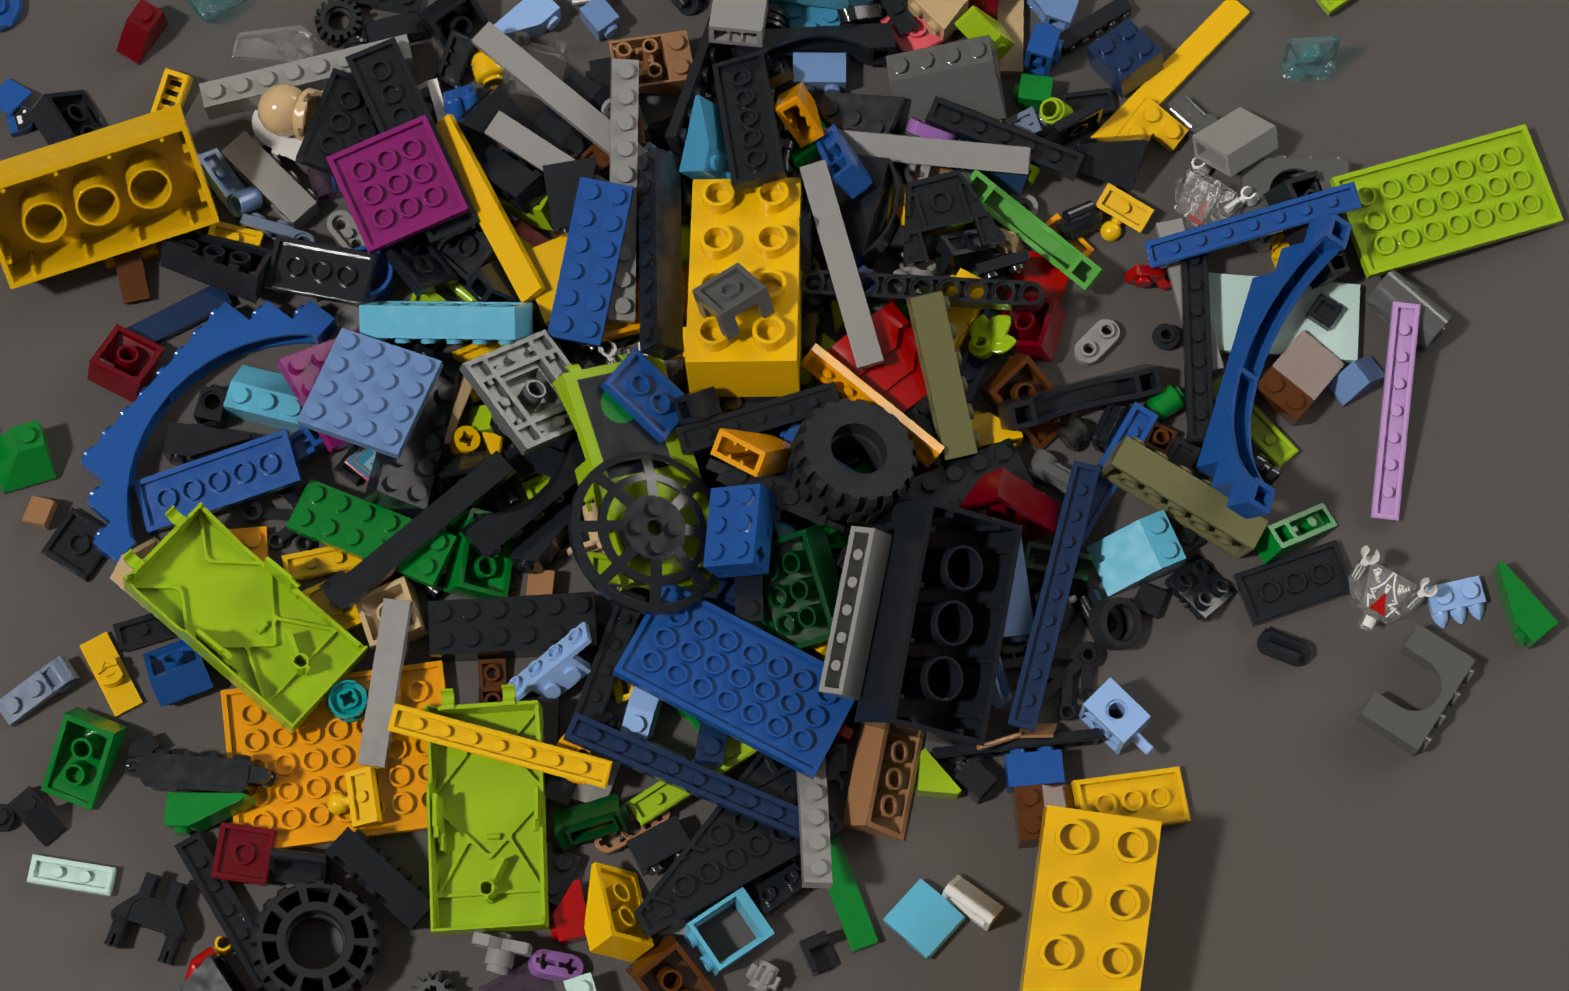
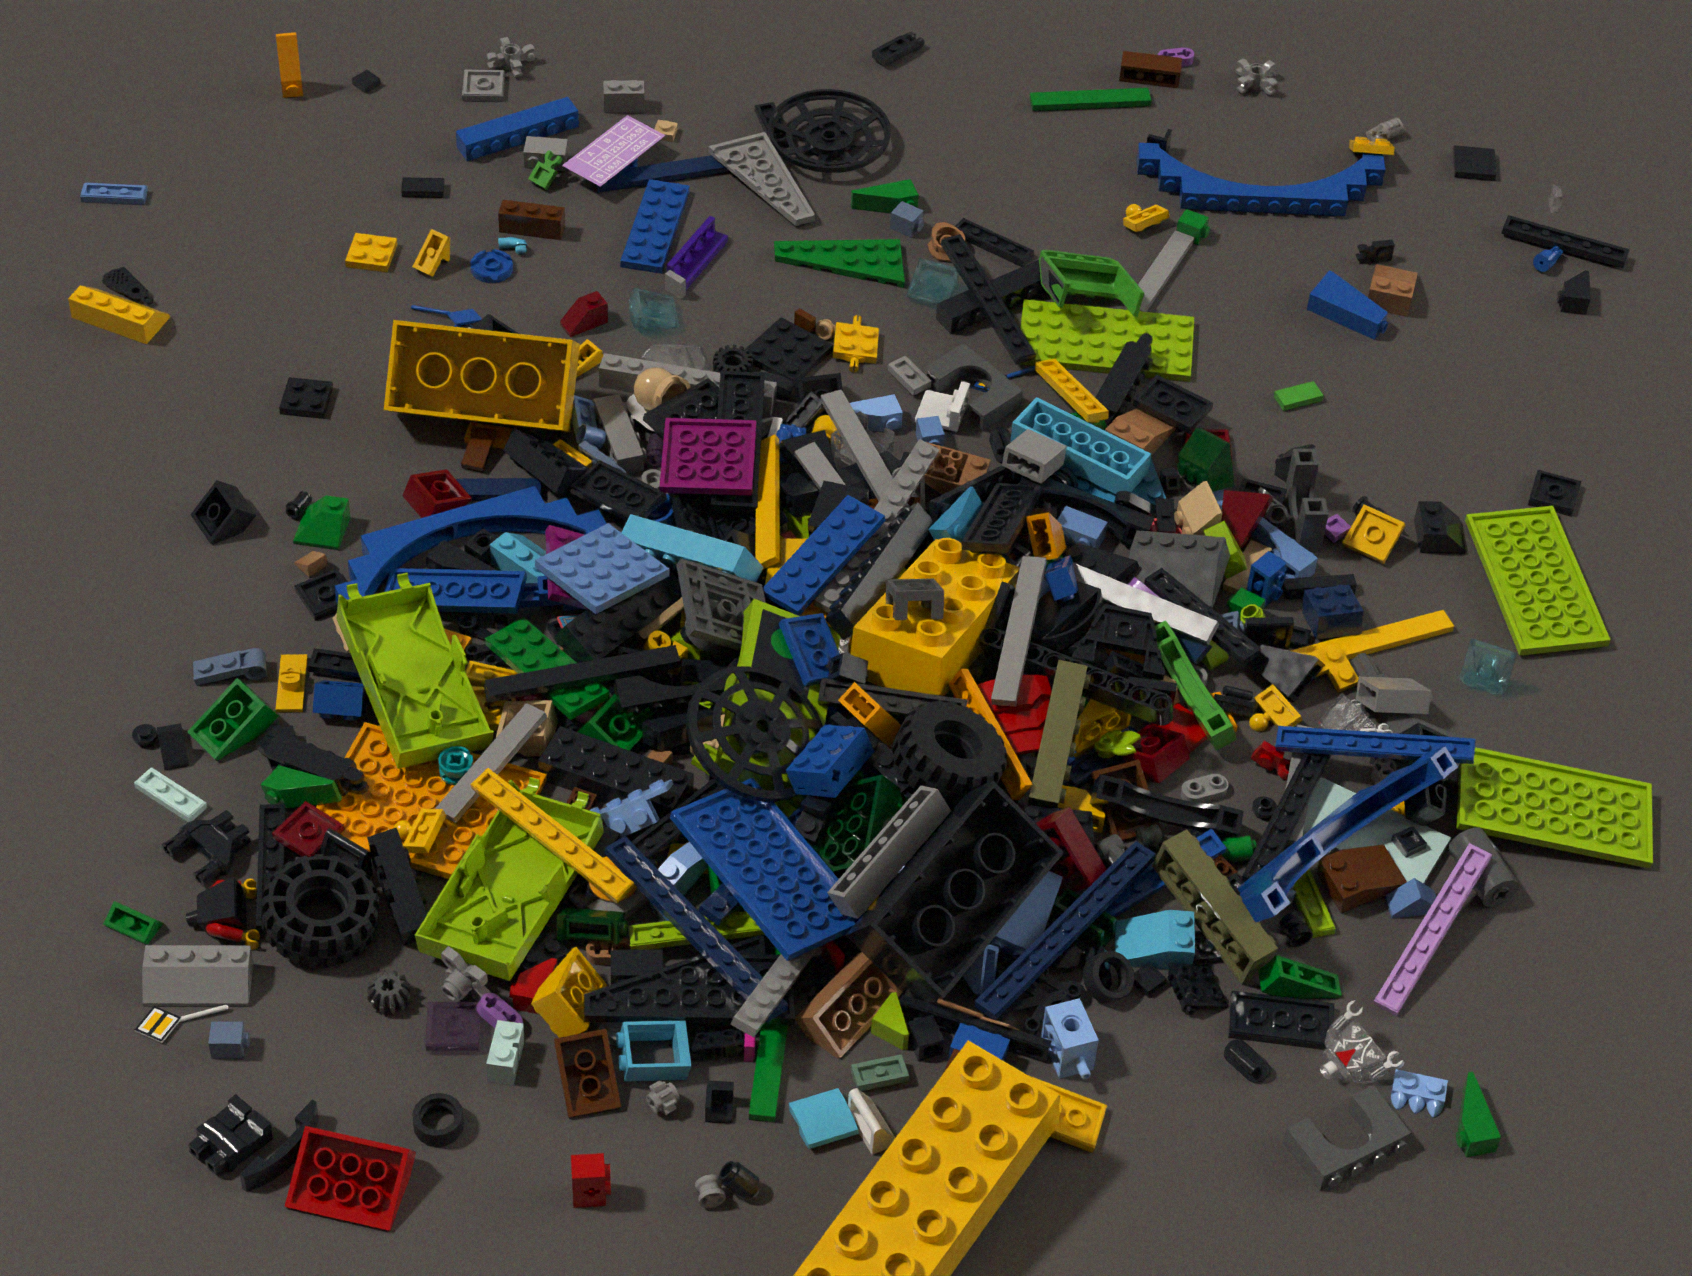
camera: 25 degrees right, 25 degrees down
(951, 841) = (879, 1072): none -> sand green plate

